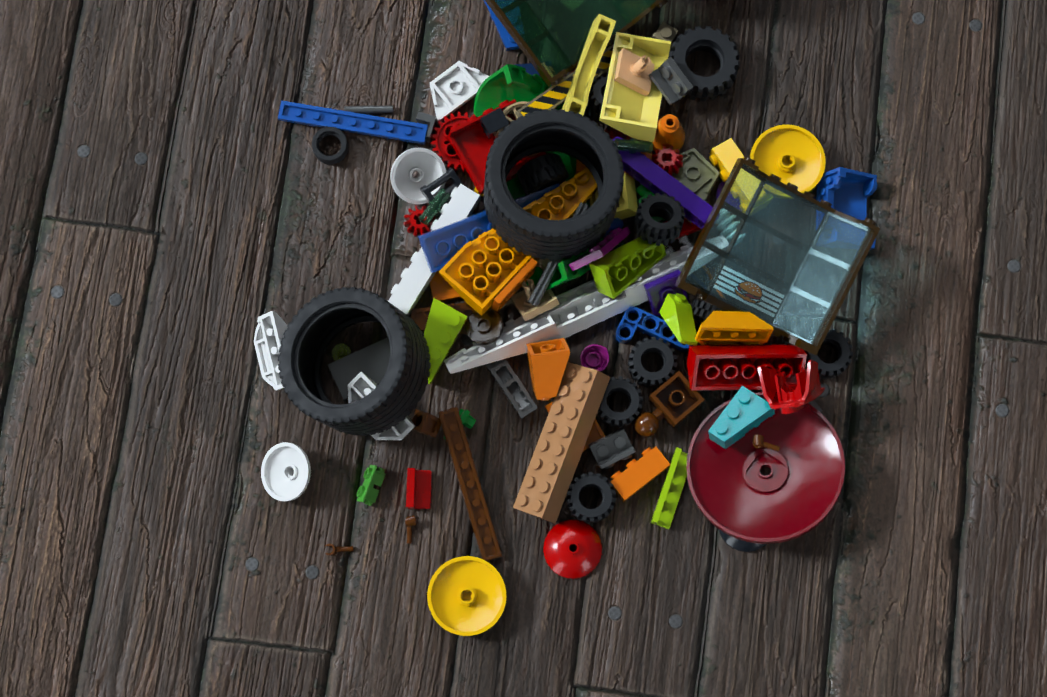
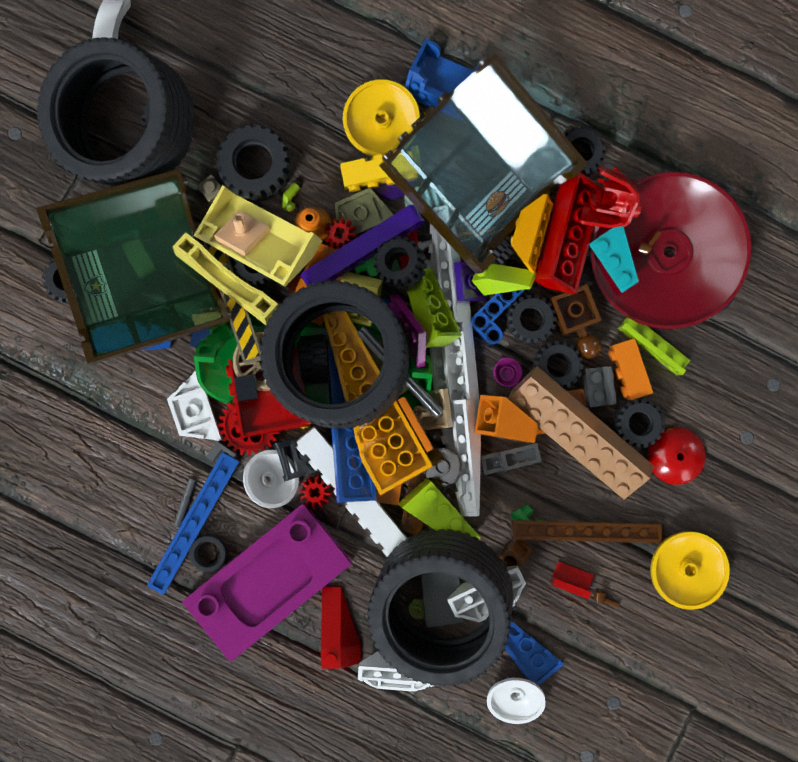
camera: 75 degrees left, 10 degrees up
(292, 287) = (338, 635): none -> red wedge
(322, 206) = (267, 582): none -> magenta piece
(331, 473) = (530, 657): none -> blue wing
(338, 549) = (601, 675): reddish brown hand -> none
(372, 477) = (546, 620): bright green hinge -> none
(434, 207) = (309, 474): clear green pin -> none
(634, 146) = (318, 262): clear green pin -> none
(671, 81) = (264, 201): dark grey bracket -> none
(683, 104) = (287, 197): none -> lime arm

